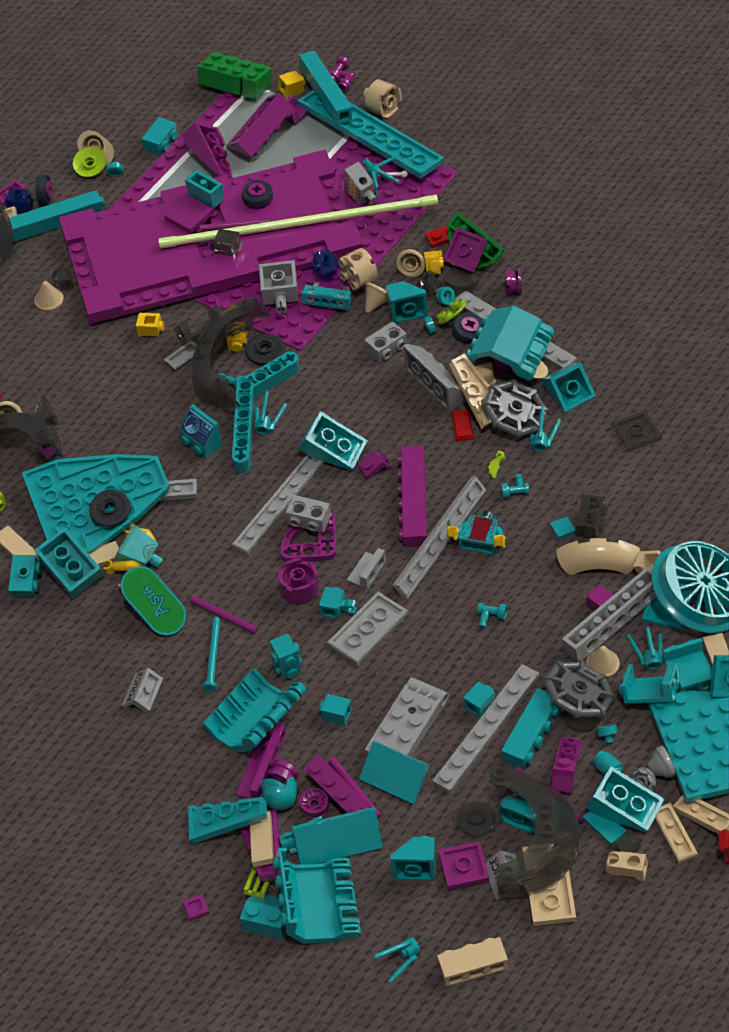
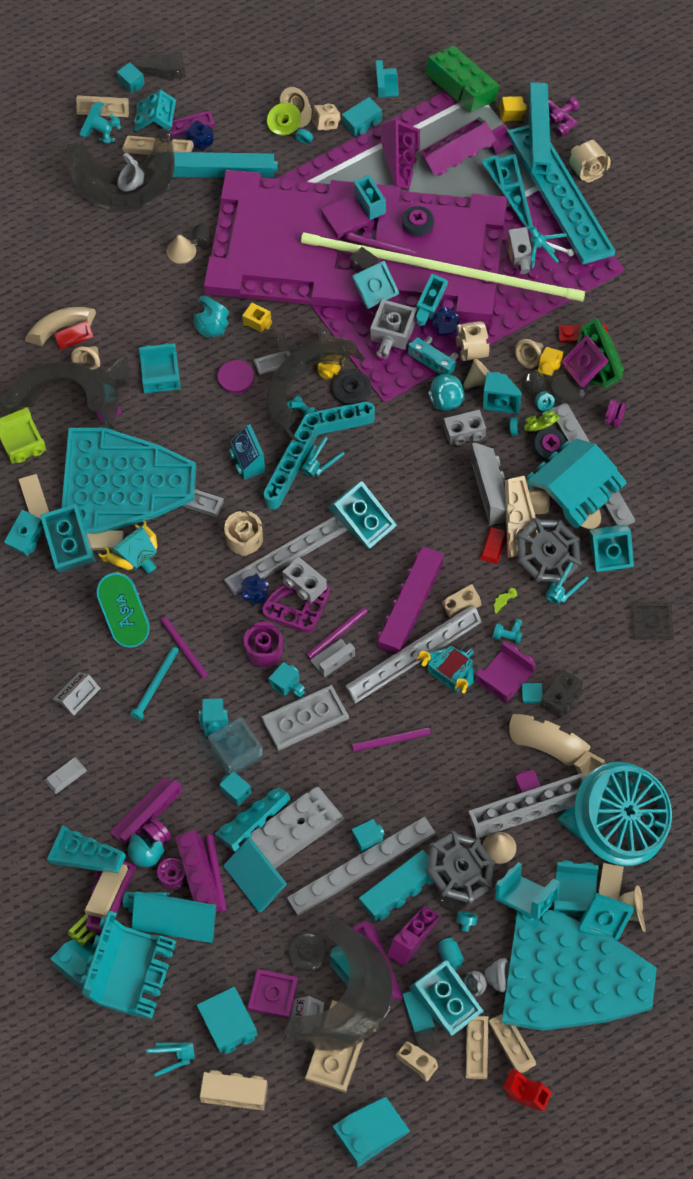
camera: 20 degrees right, 10 degrees up
(43, 189) = (227, 132): black wheel -> none
(79, 397) = (159, 368): none -> teal panel
(109, 338) = (213, 318): none -> teal helmet
(114, 517) = (133, 508): black wheel -> none
(127, 146) = (326, 117): none -> tan brick
(154, 379) = (235, 376): none -> magenta tile
(165, 102) = (386, 81): none -> teal panel
(167, 764) = (65, 775): none -> light grey tile
(196, 907) = (23, 926): magenta tile -> none
(230, 498) = (243, 533): none -> tan brick
(246, 254) = (375, 284): none -> teal plate
(250, 712) = (159, 757): teal hinge -> none
(265, 540) = (254, 589): none -> clear blue brick
(303, 247) = (430, 299): none -> teal brick
(317, 135) = (508, 179): none -> teal wedge
(319, 672) = (236, 746): none -> clear light blue brick
(354, 319) = (446, 392): none -> teal helmet
(359, 549) = (338, 632): none -> magenta bar
(361, 733) = (241, 827): none -> teal wing
(374, 463) = (392, 551): magenta bracket -> none
(415, 860) = (230, 971): teal slope -> none
(434, 904) = (227, 1020): none -> teal panel
(456, 614) = (391, 739): none -> magenta bar
(459, 478) = (461, 600): none -> tan leg
(485, 610) = (419, 747): teal piece -> none
(531, 519) = (506, 672): none -> magenta panel
(616, 943) = (370, 1130): none -> teal slope
(652, 658) = (545, 864): teal plant -> none

